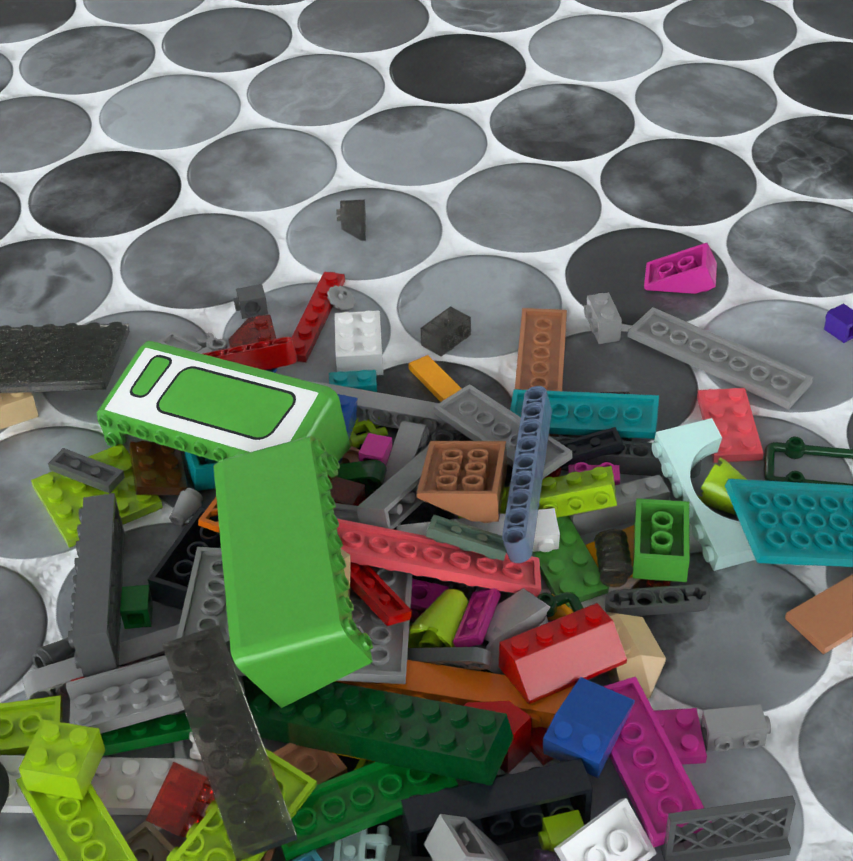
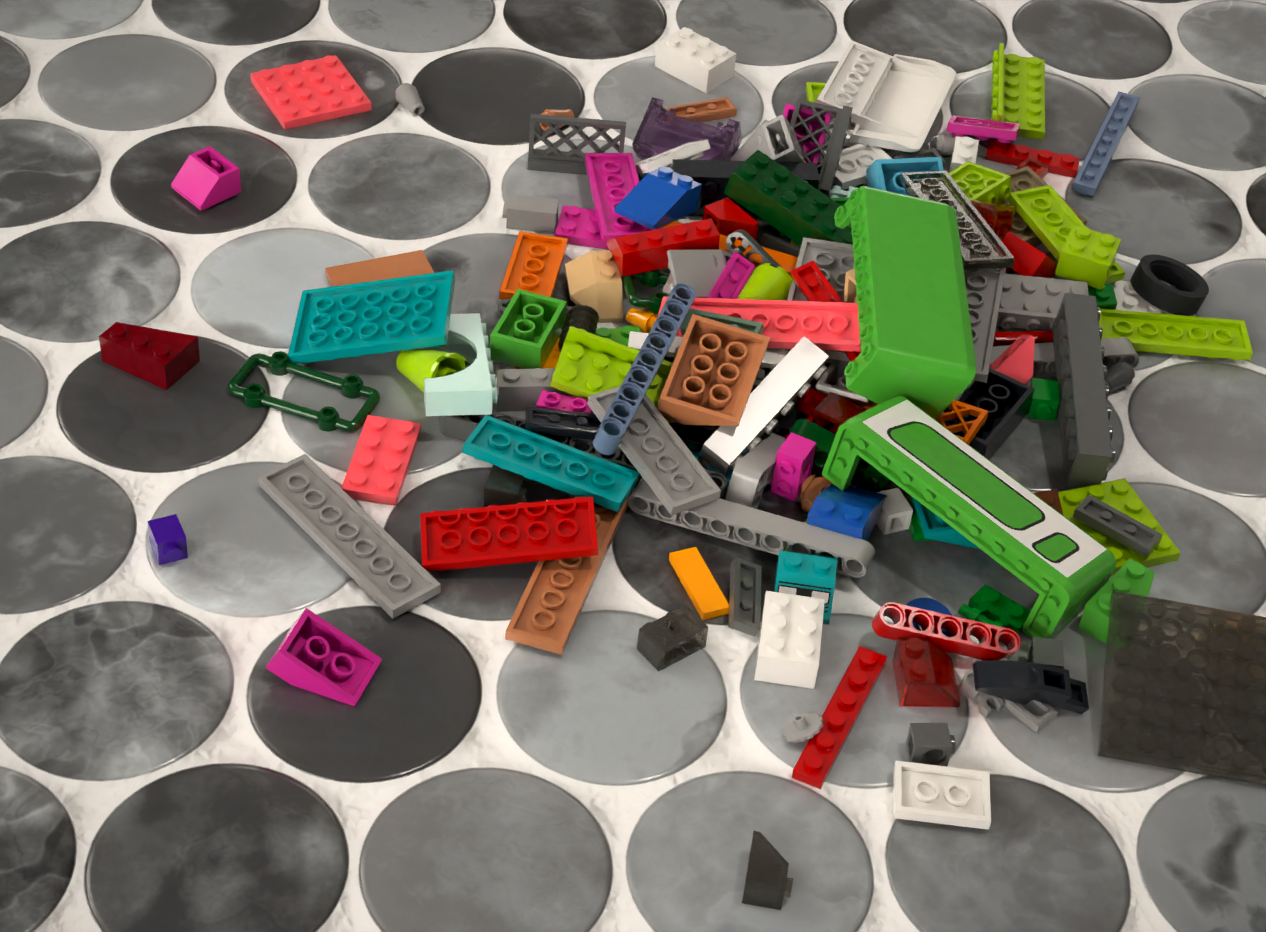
camera: 175 degrees left, 0 degrees up
(82, 428) = (1130, 578): none -> bright green wedge
(133, 771) = (1028, 259): none -> red slope
(165, 612) = (1017, 359): none -> coral slope
(183, 331) = (1030, 681): none -> black slope
(229, 277) = (941, 795): none -> white plate
(398, 370) = (745, 596): none -> dark grey plate
(595, 366) = (508, 534): none -> red bracket
(603, 318) = (463, 608): light grey brick -> none
(697, 653) = (534, 265): none -> orange plate

